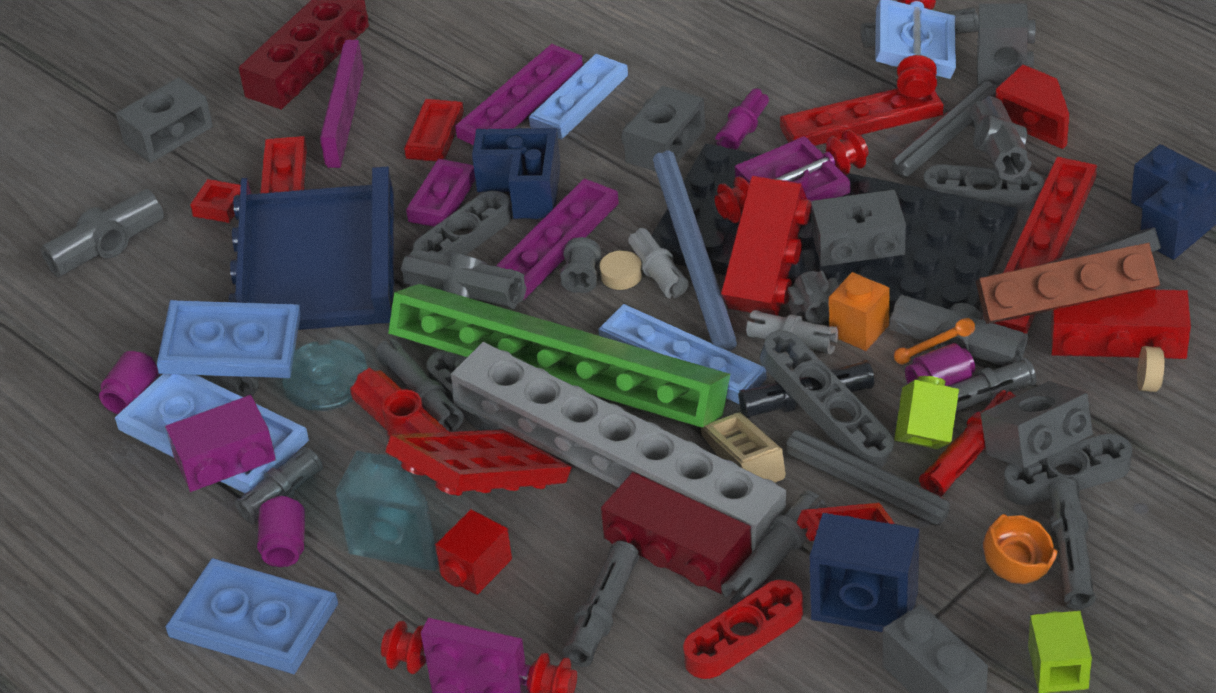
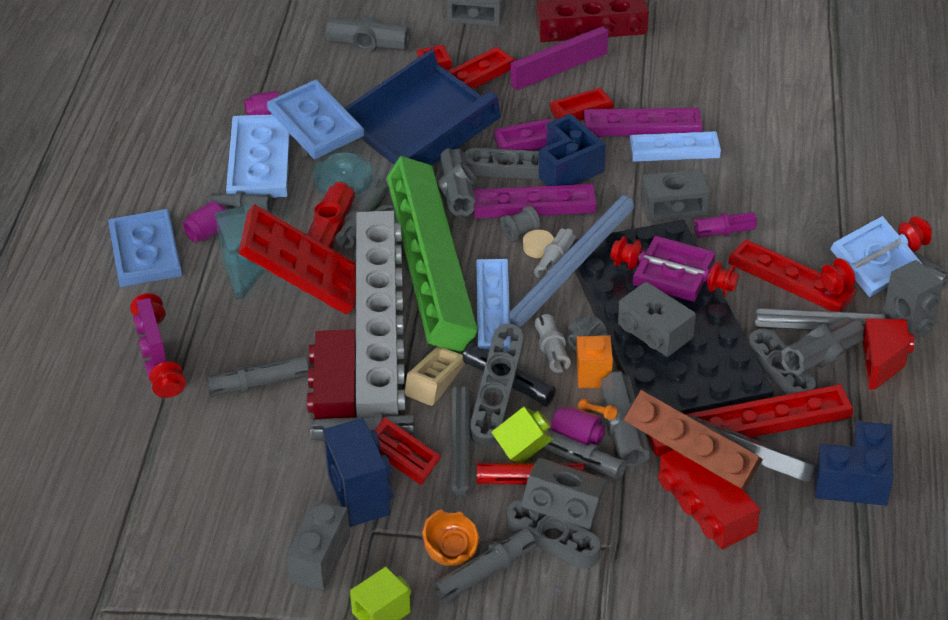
camera: 50 degrees right, 0 degrees up
(220, 443) = (235, 159): magenta brick -> none
(473, 552) = (249, 302): red brick -> none
(736, 647) = (273, 439): red beam -> none
(766, 246) = (596, 284): red brick -> none
(1150, 369) = (679, 530): tan tile -> none

